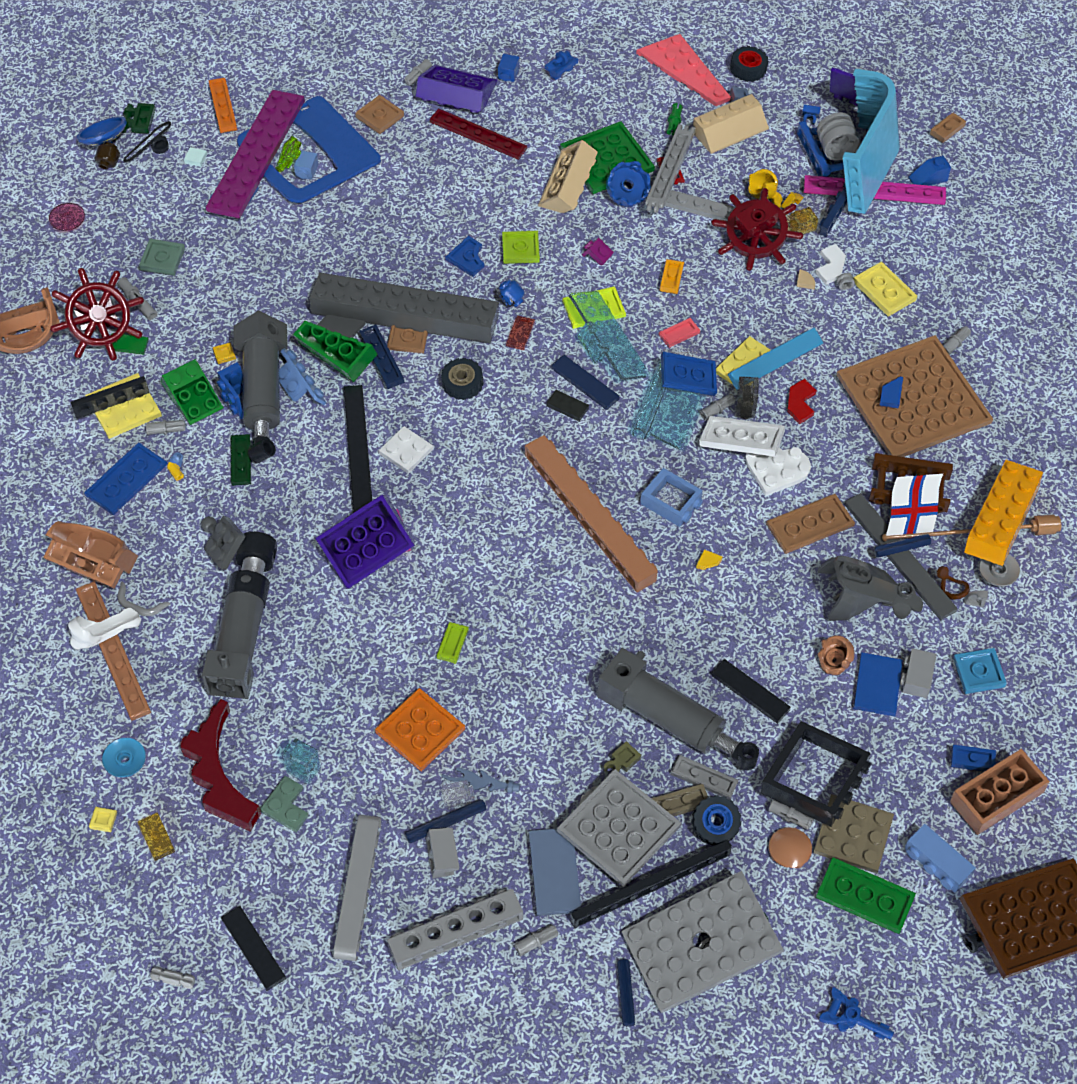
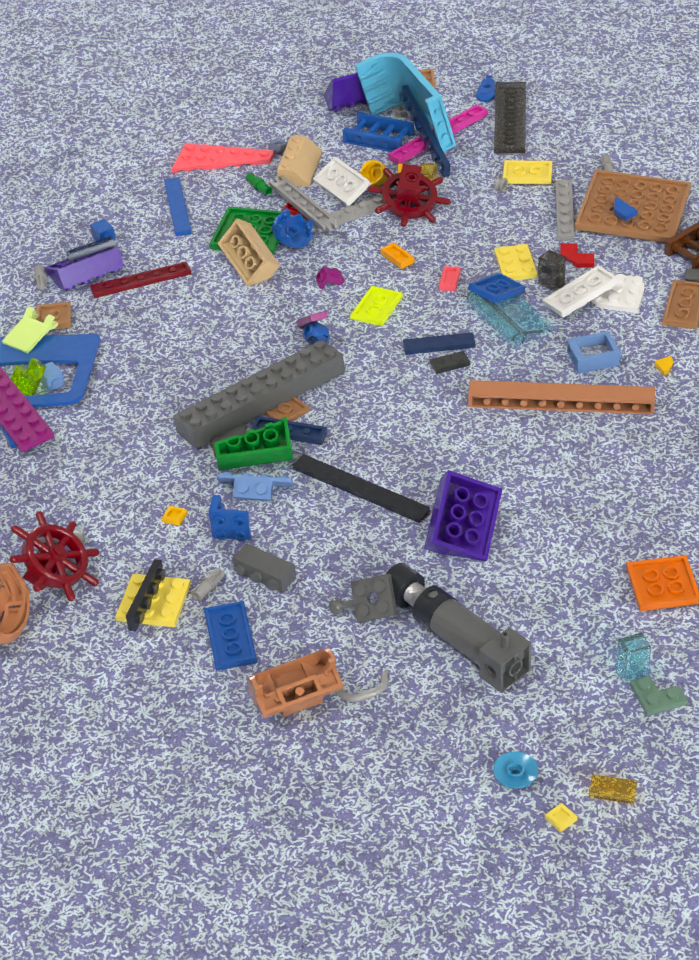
camera: 45 degrees left, 15 degrees down
(90, 633) = (374, 724): white hair -> none
(114, 654) = (396, 728): nougat tile -> none
(131, 344) = (98, 564): green tile -> none
(162, 257) = (31, 500): sand green plate -> none
(174, 466) = (254, 600): arm -> none
(191, 392) = (192, 550): green slope -> none
(208, 449) = (264, 568): none -> dark grey brick
(222, 798) = (586, 723): dark red arch -> none
(240, 460) = (303, 563): dark green tile -> none
(260, 340) = (204, 477): dark grey piece -> none
(342, 113) = (29, 331): none -> yellowish green flag
(406, 449) = (392, 463): white plate -> none
(452, 642) = (599, 527): lime tile -> none
(462, 378) = (363, 399): black wheel -> none
(466, 256) = (247, 342): blue tile -> none
(477, 76) = (91, 248): none -> tile
(519, 277) = (312, 318): none -> magenta tile
(520, 247) = (277, 310): lime plate -> none
(520, 332) = (354, 352): clear red tile -> none
(562, 63) = (137, 206): blue hips -> none
(593, 89) = (177, 206): none -> blue tile
(605, 337) = (414, 313): clear light blue bracket -> none
(717, 407) = (537, 294): light grey axle -> none
(728, 171) = (342, 181): none -> white plate
(749, 63) = (256, 128): black wheel -> none
(778, 357) = (530, 244): dark azure tile -> none
(805, 280) = (475, 201): tan tile -> none
(811, 111) = (336, 124): blue tile -> none
(835, 258) = (482, 185): white tile -> none
(837, 135) = (383, 115): light grey wheel -> none
(859, 350) = (564, 210): none -> light grey plate
(931, 172) = (457, 102): blue slope -> none
(955, 223) = (510, 117): none -> clear smoke plate
(975, 183) = (486, 90): none -> blue piece

